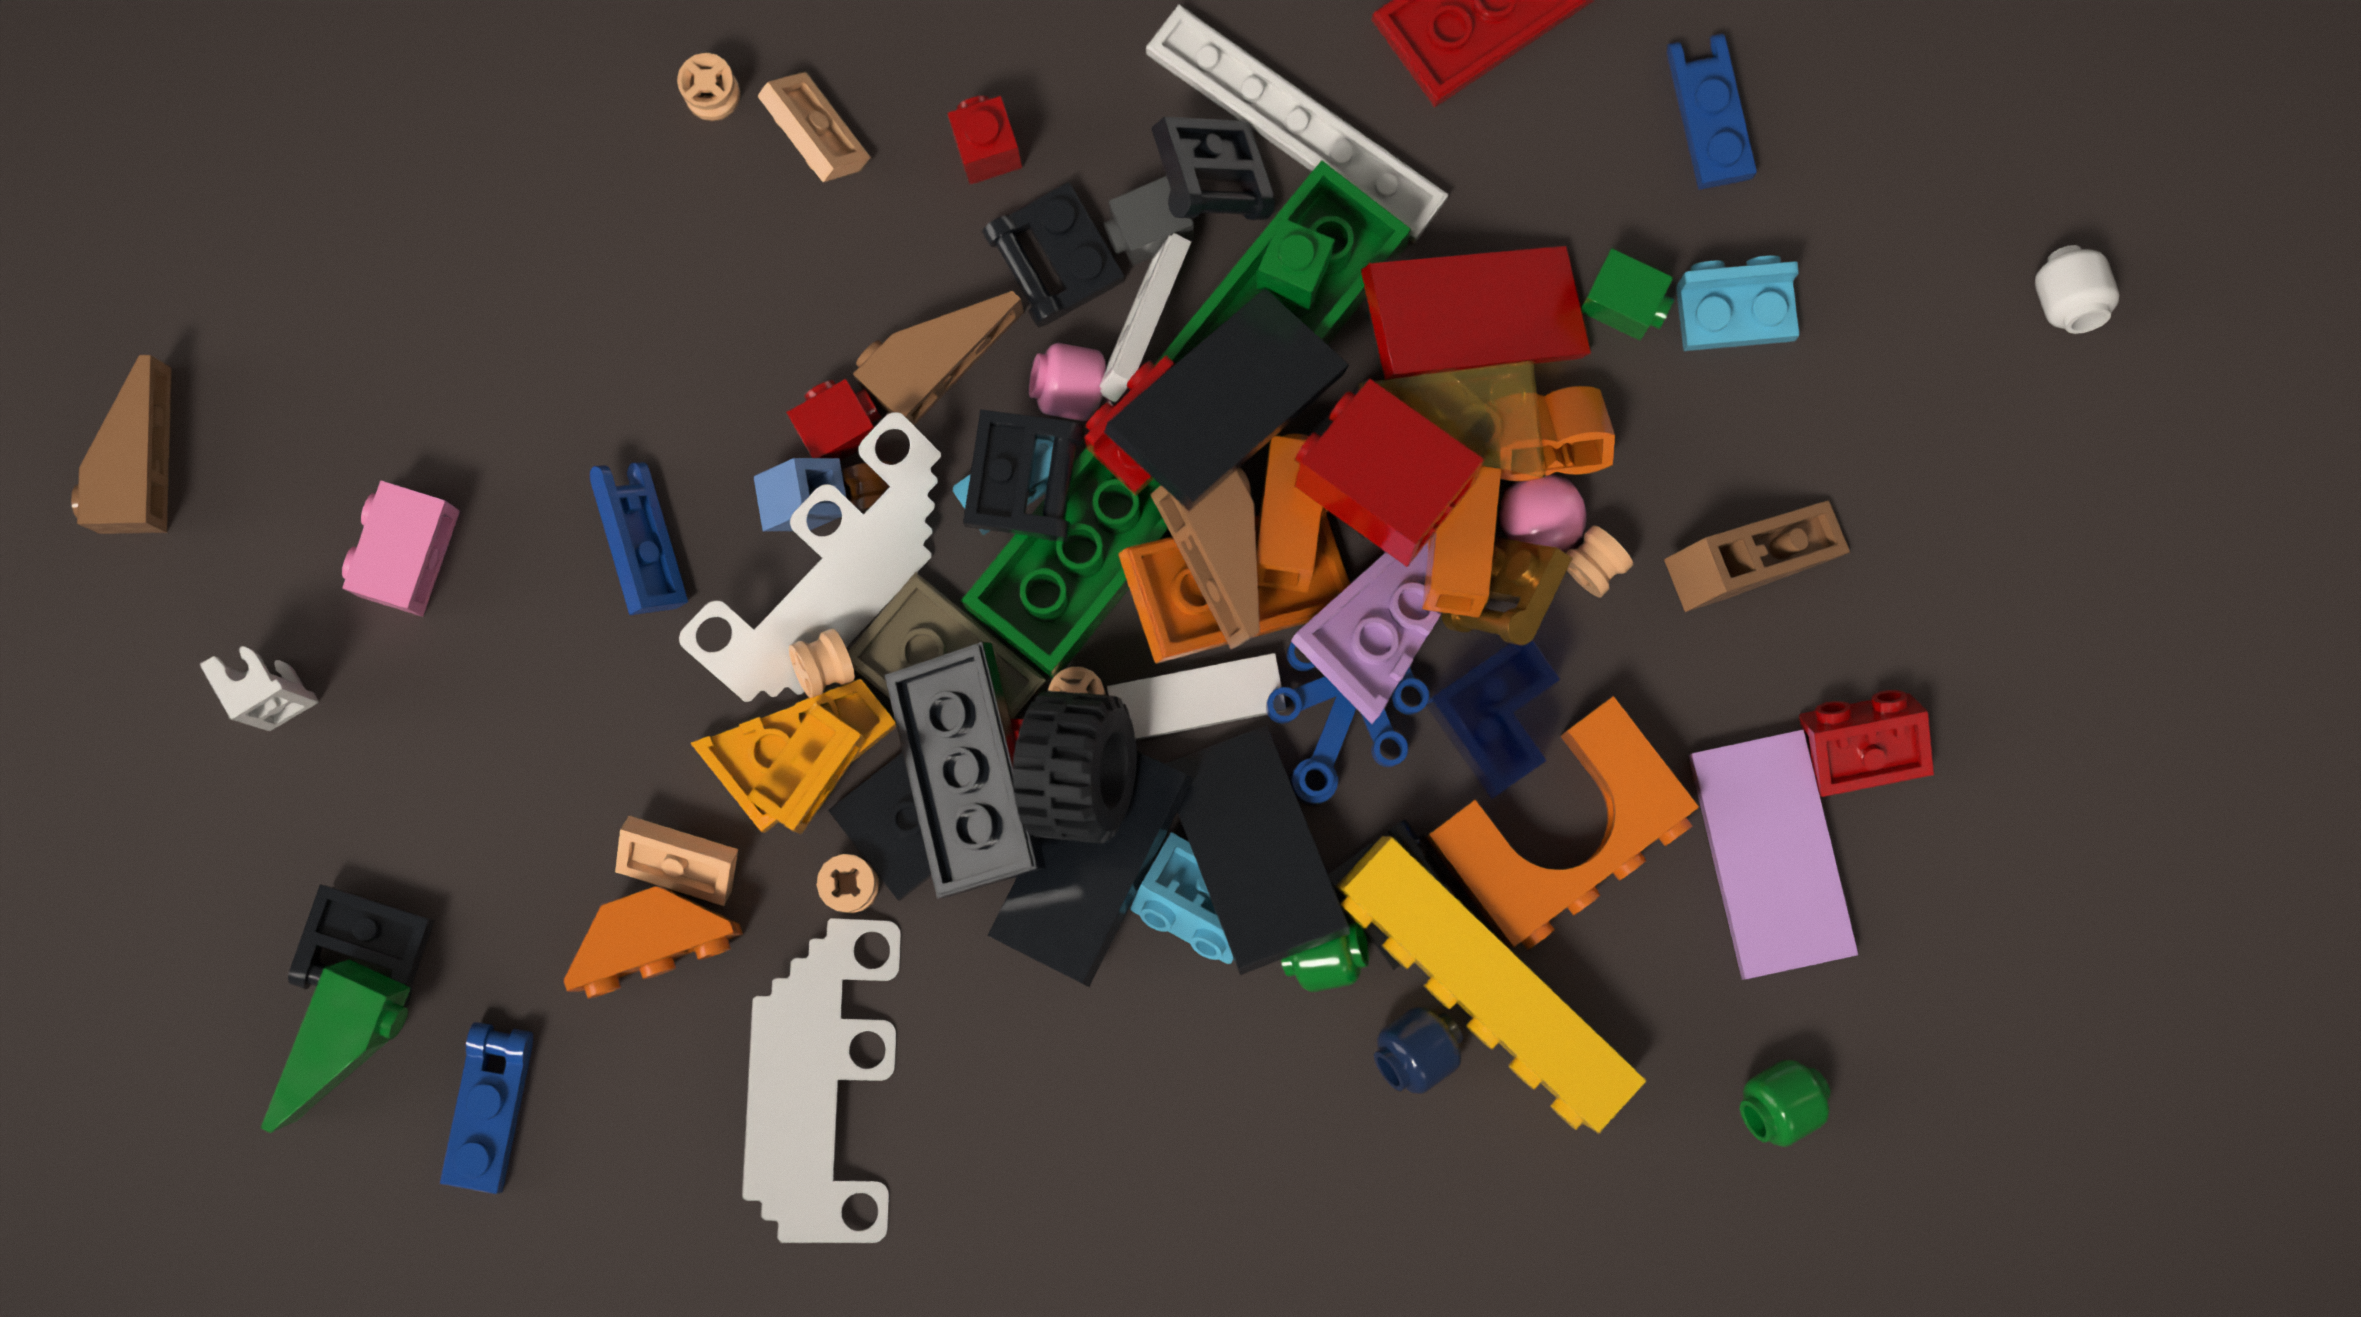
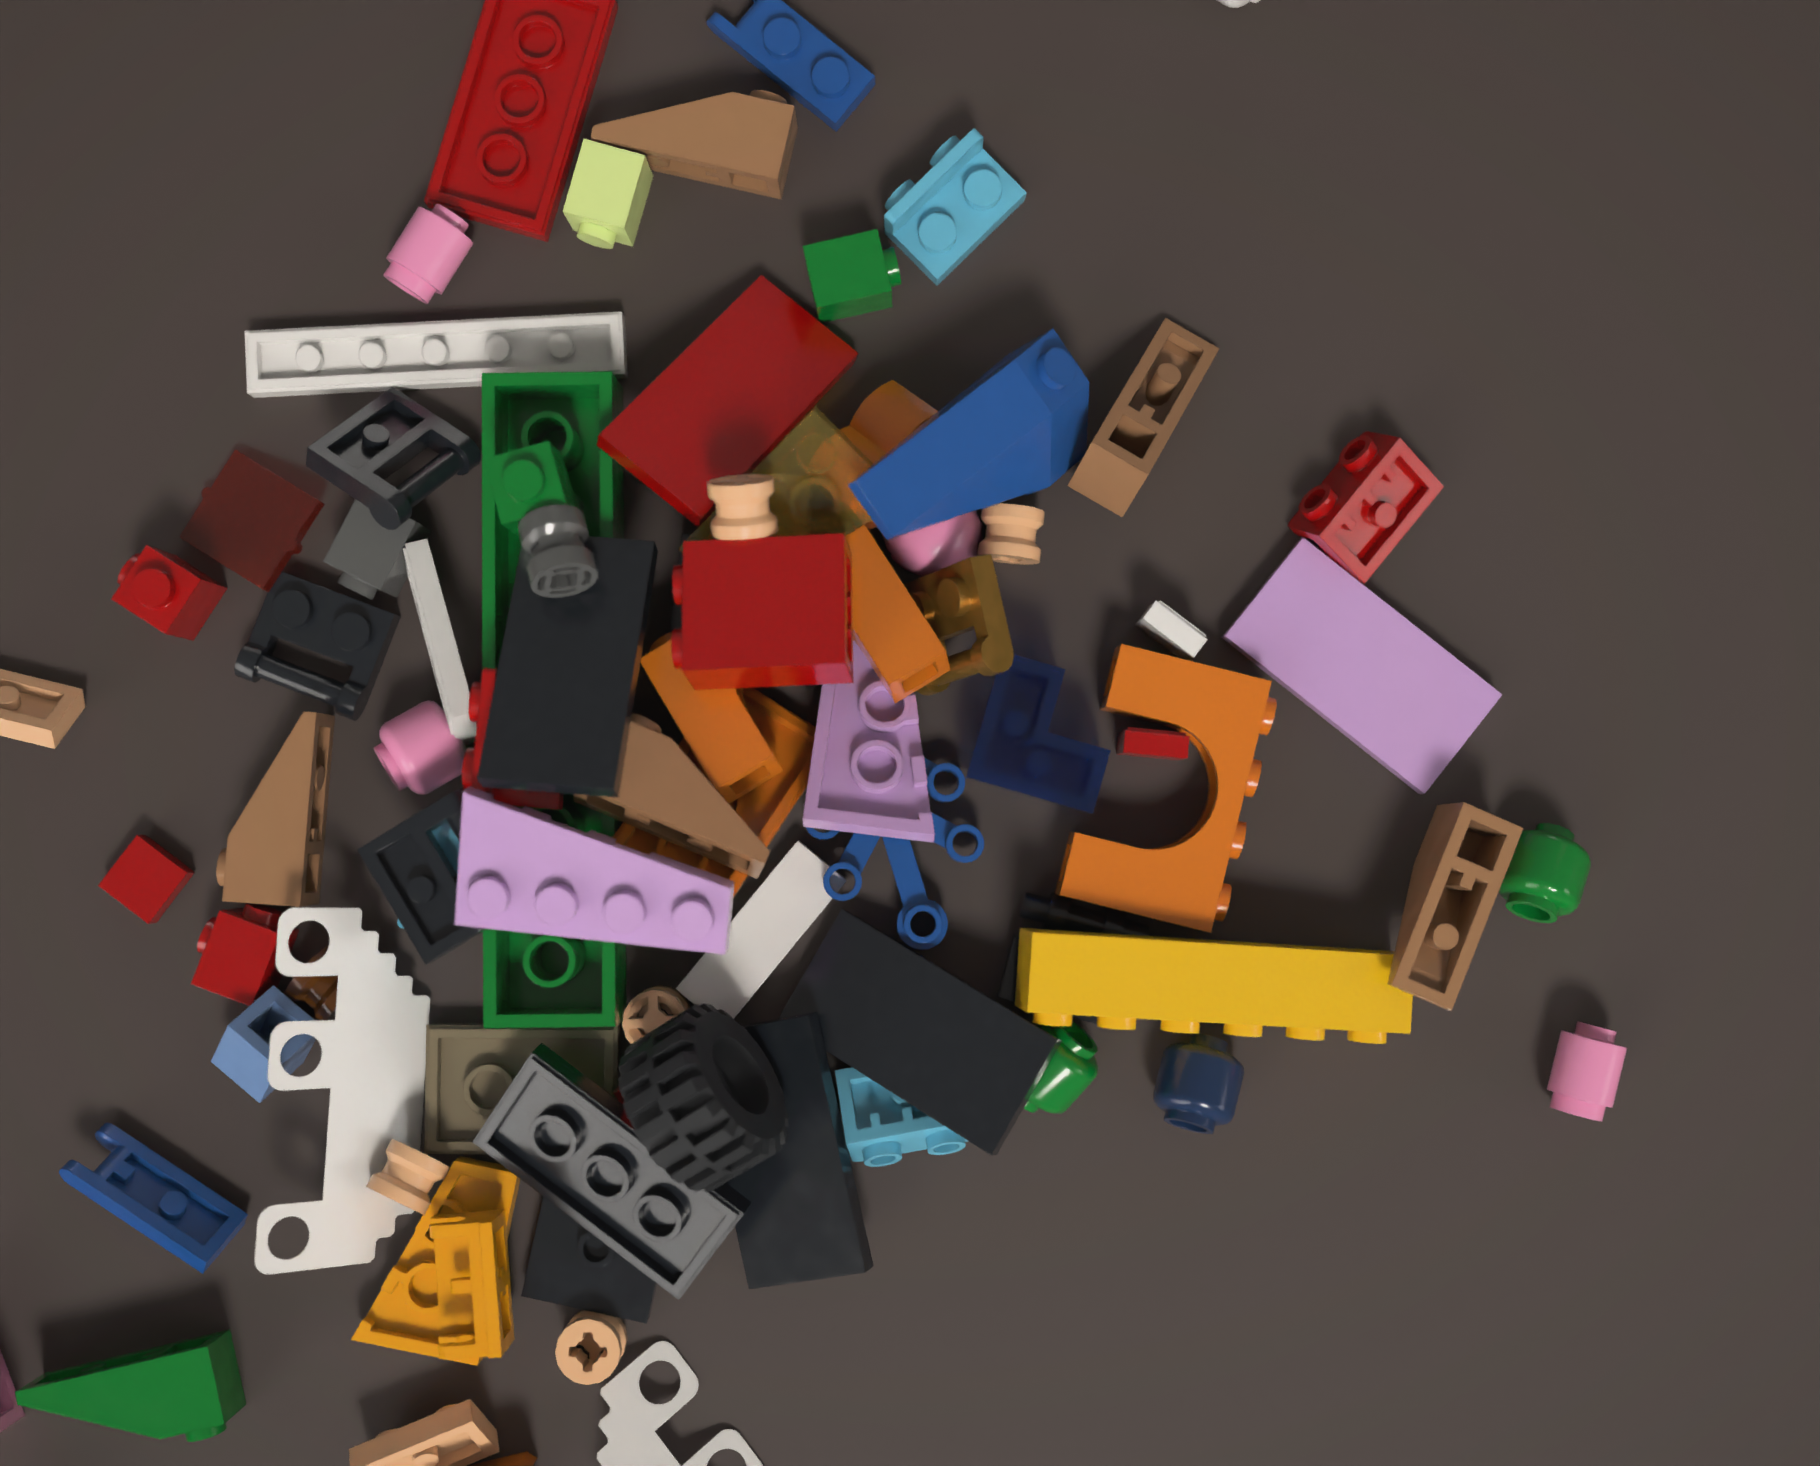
camera: 45 degrees left, 5 degrees up
(531, 670) = (150, 1392): none -> green slope
(807, 319) = (146, 879): none -> red tile
(1078, 135) = (251, 521): none -> clear red piece
(1103, 539) = (559, 881): none -> lavender wing
(1282, 312) = (556, 544): none -> dark grey wheel
(1348, 50) = (428, 252): none -> bright pink brick
(1428, 388) = (742, 506): none -> light nougat wheel
(1503, 108) = (607, 194): none -> yellowish green brick
(1579, 786) = (1153, 743): none -> red tile
(1608, 130) = (714, 140): none -> medium nougat slope
(1639, 486) = (987, 445): none -> blue wedge
(1656, 717) = (1172, 630): none -> white tile
(1703, 1062) = (1450, 900): none -> medium nougat slope
(1704, 1269) = (1586, 1071): none -> bright pink brick

